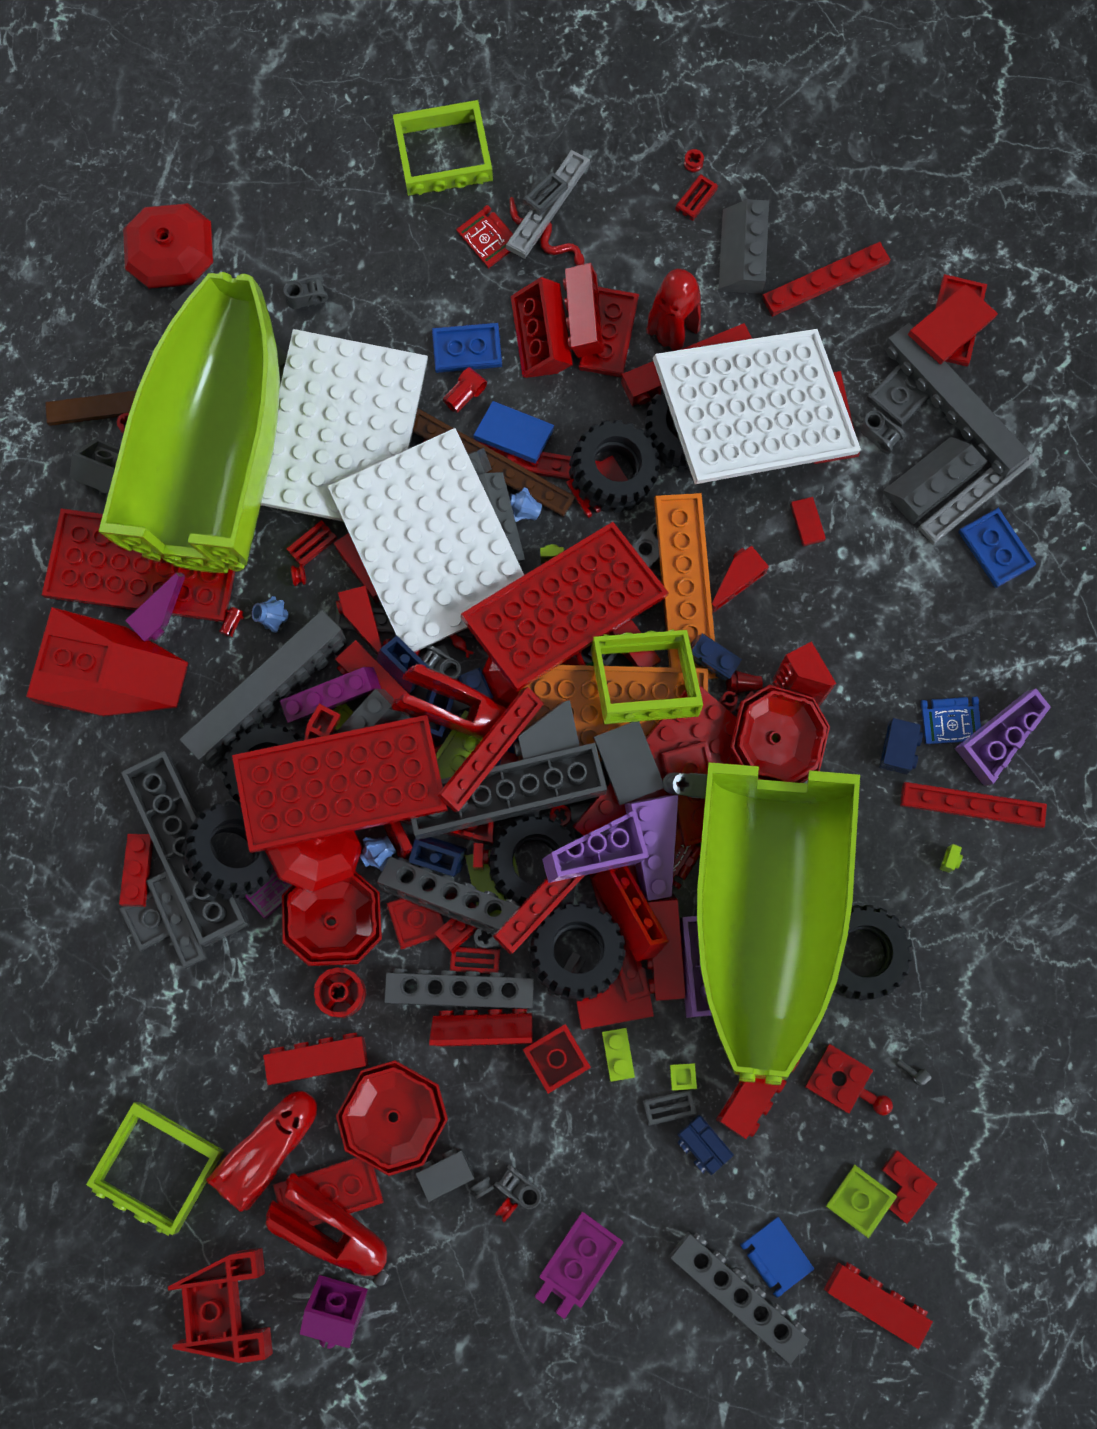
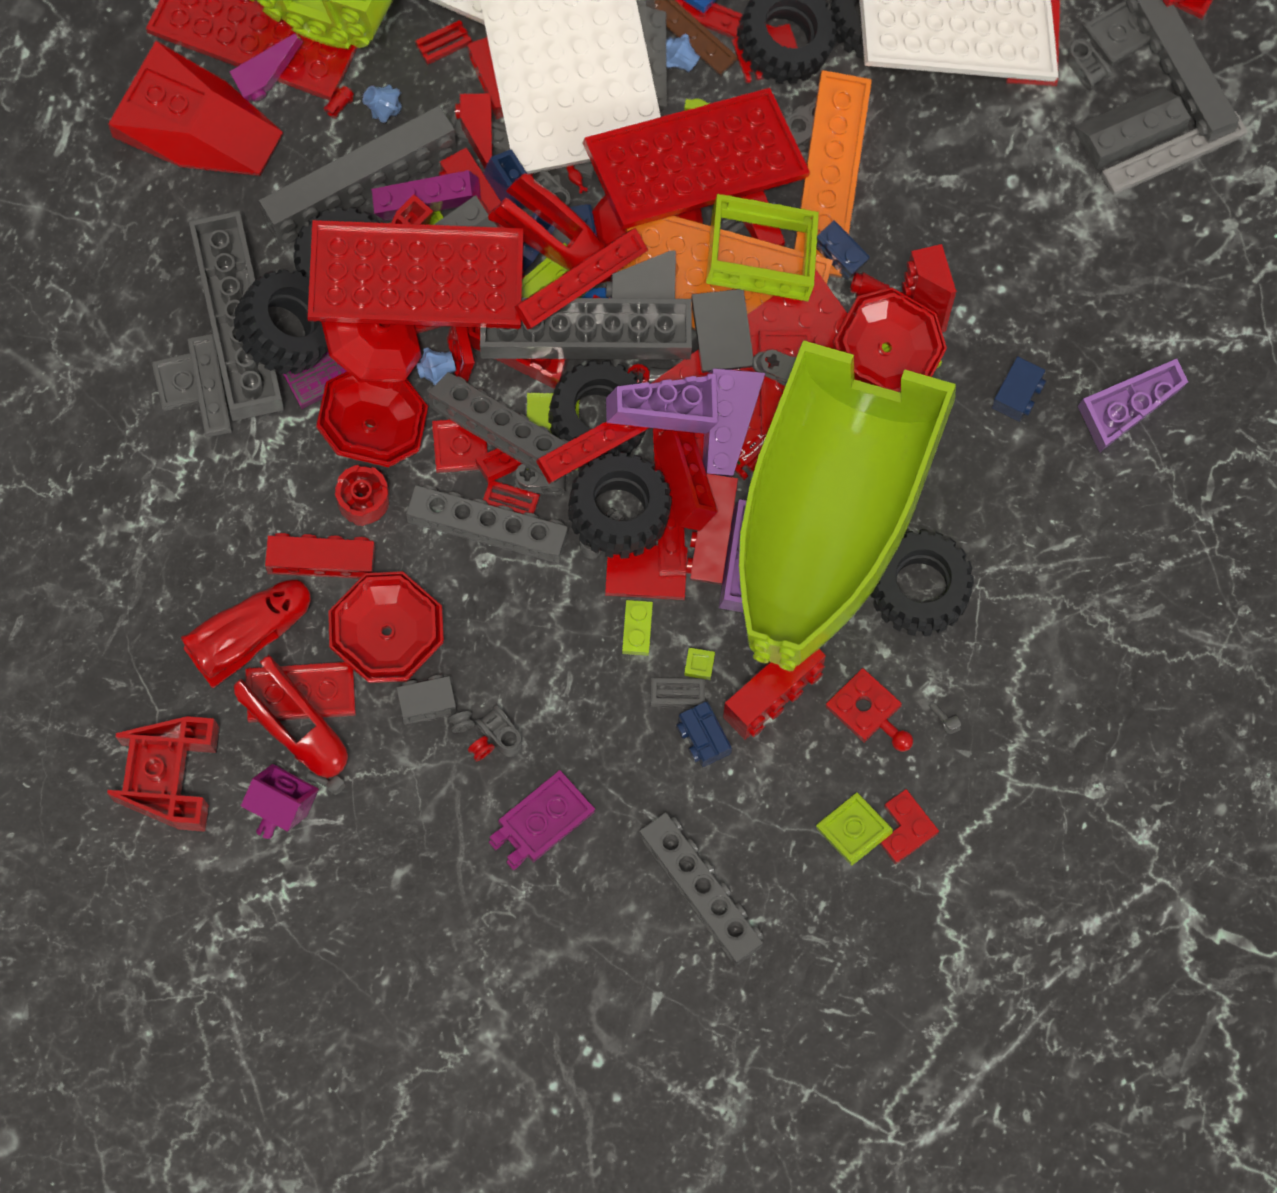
camera: 10 degrees right, 5 degrees down
(123, 1200) = (95, 589): lime window -> none
(136, 870) = (178, 327): red plate -> none
(298, 575) = (421, 70): red bush -> none
(438, 855) = (498, 383): dark blue brick -> none
(480, 856) = (542, 394): red plate -> none
(485, 1029) = (500, 567): red slope -> none
(556, 1058) = (571, 611): red brick -> none
(729, 695) = (847, 298): red pin -> none
(743, 572) = (895, 176): red slope -> none
(777, 1256) = (752, 864): blue piece -> none
(807, 521) = (982, 140): red tile -> none
(877, 1305) = (844, 932): red brick -> none
(950, 720) = (1080, 376): blue piece -> none
(952, 858) = (1043, 514): lime plate -> none
(973, 805) = (1082, 468): red tile -> none
(997, 547) = (1181, 213): blue tile -> none

